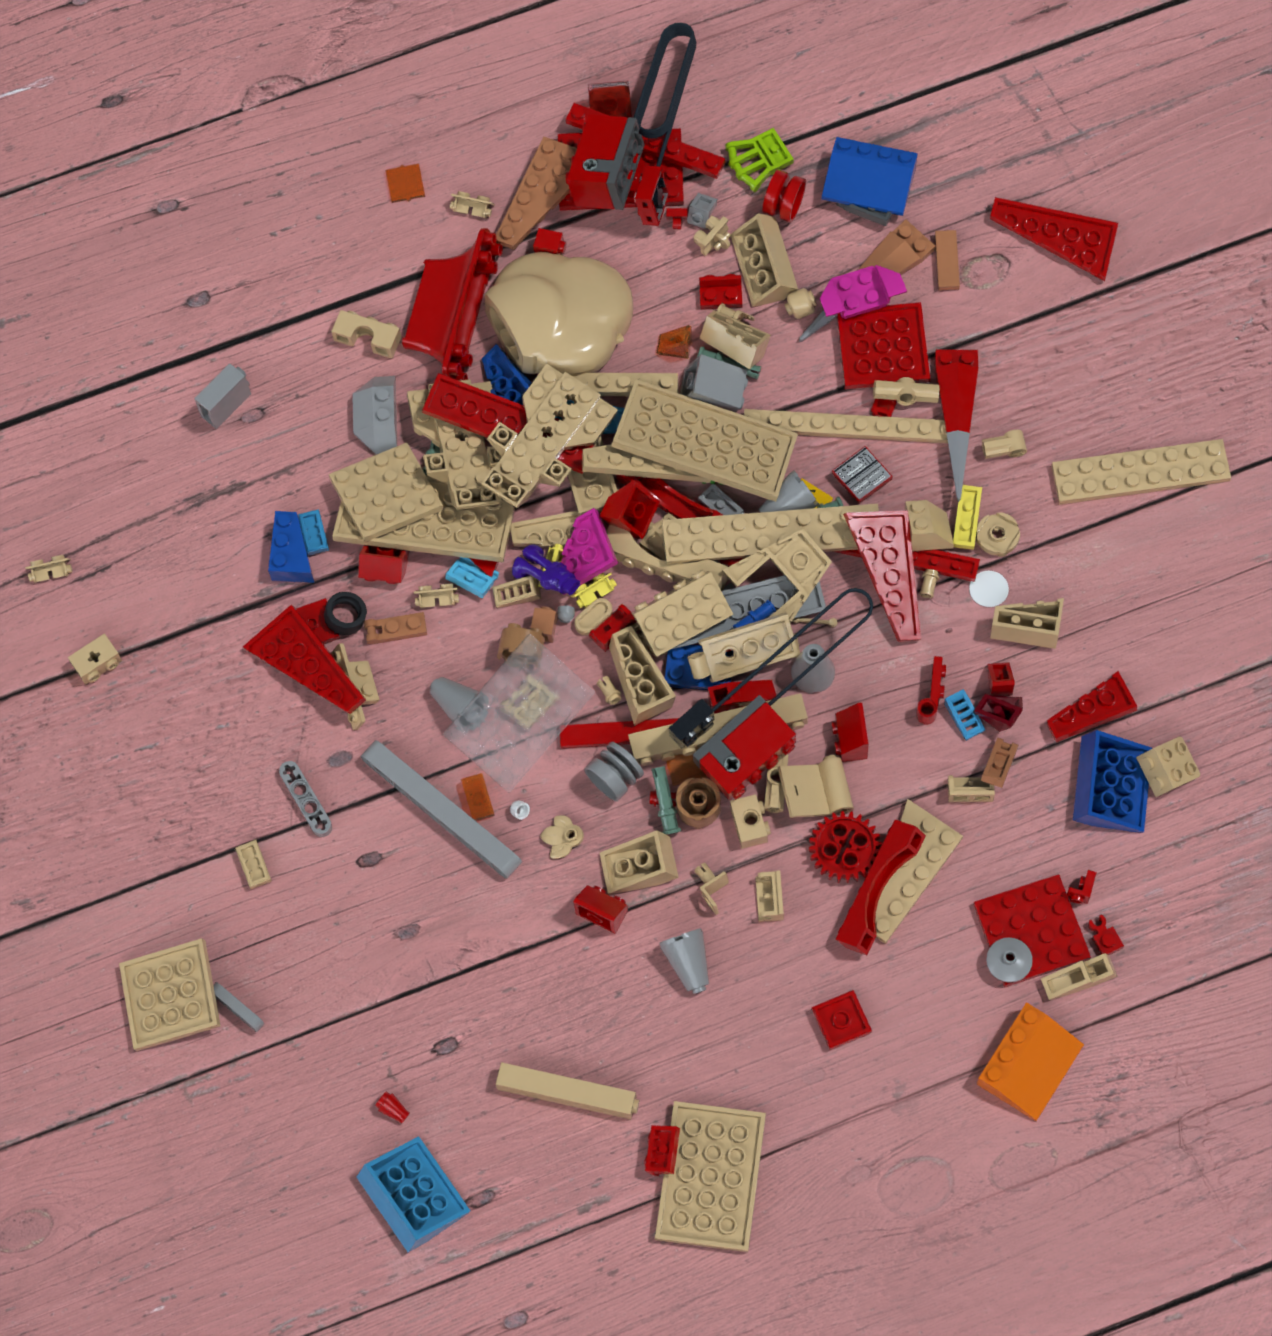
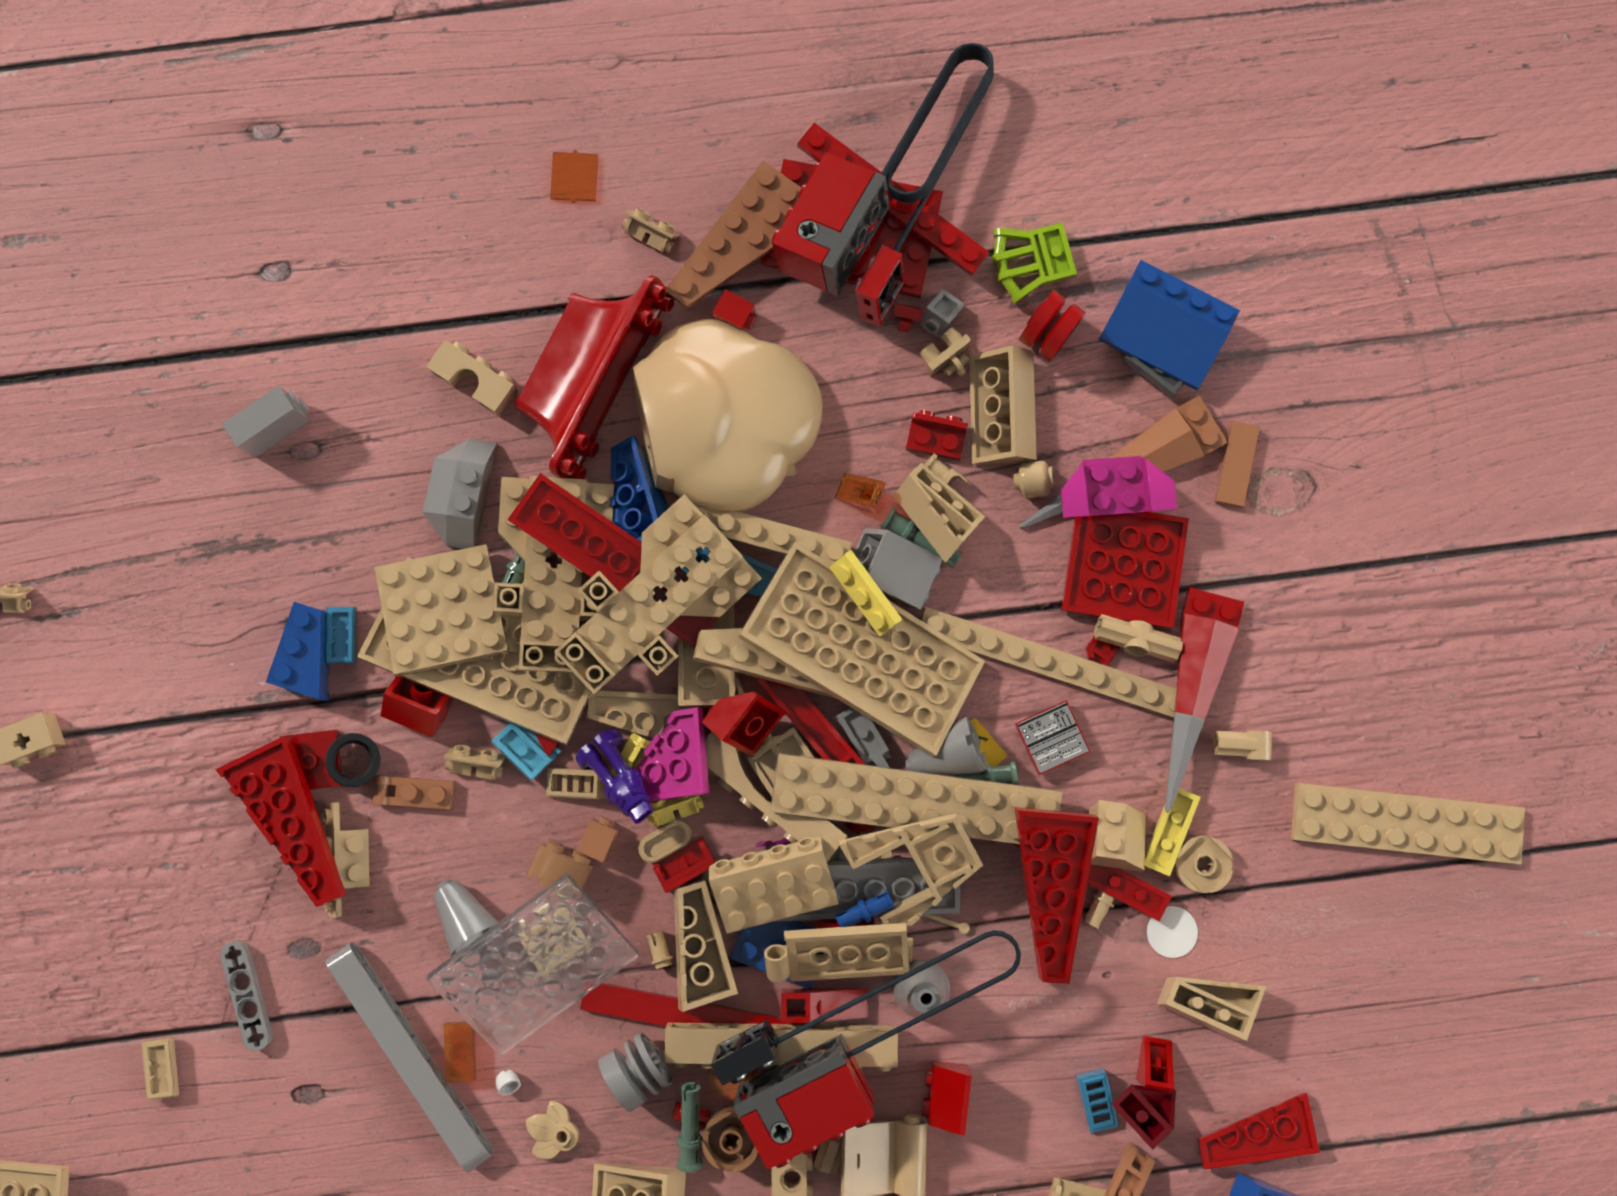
camera: 10 degrees right, 15 degrees up
(565, 613) = (630, 831): light grey hinge -> none
(610, 98) = (863, 130): clear red slope -> none
(696, 399) = (865, 593): none -> light yellow plate
(937, 692) = (1070, 1061): red plate -> none
(1073, 237) = (1407, 475): red wing -> none

